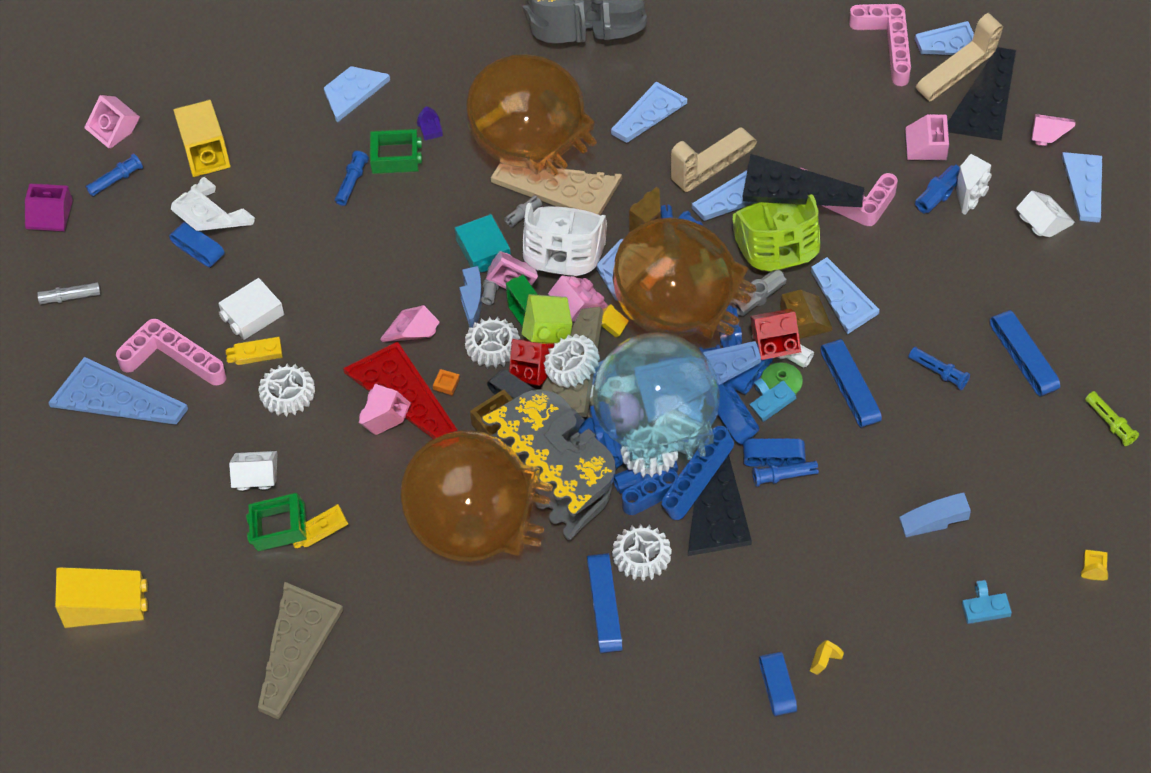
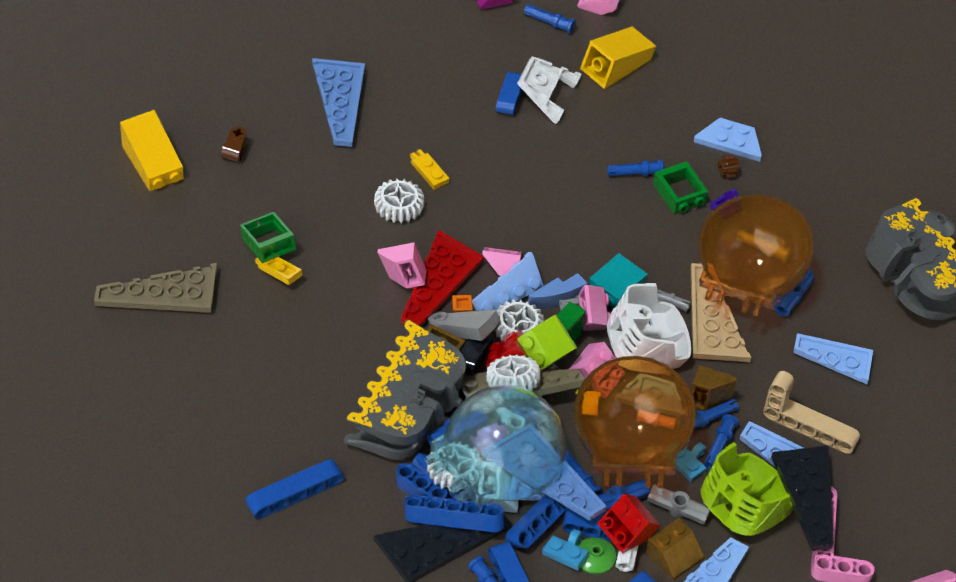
camera: 60 degrees right, 5 degrees down
(62, 294) = (417, 29): light grey pin -> none
(130, 513) = (235, 144): none -> reddish brown piece
(158, 335) = (407, 101): bright pink beam -> none
(250, 309) = (465, 149): white brick -> none
(253, 470) = (312, 206): white slope -> none
(389, 103) = (728, 166): none -> reddish brown gear
(449, 333) = (515, 284): none -> light blue wing
(471, 497) = (335, 344): clear orange windscreen -> none
(478, 385) = (467, 325): none -> light grey piece
(649, 543) = (357, 493): white gear -> none

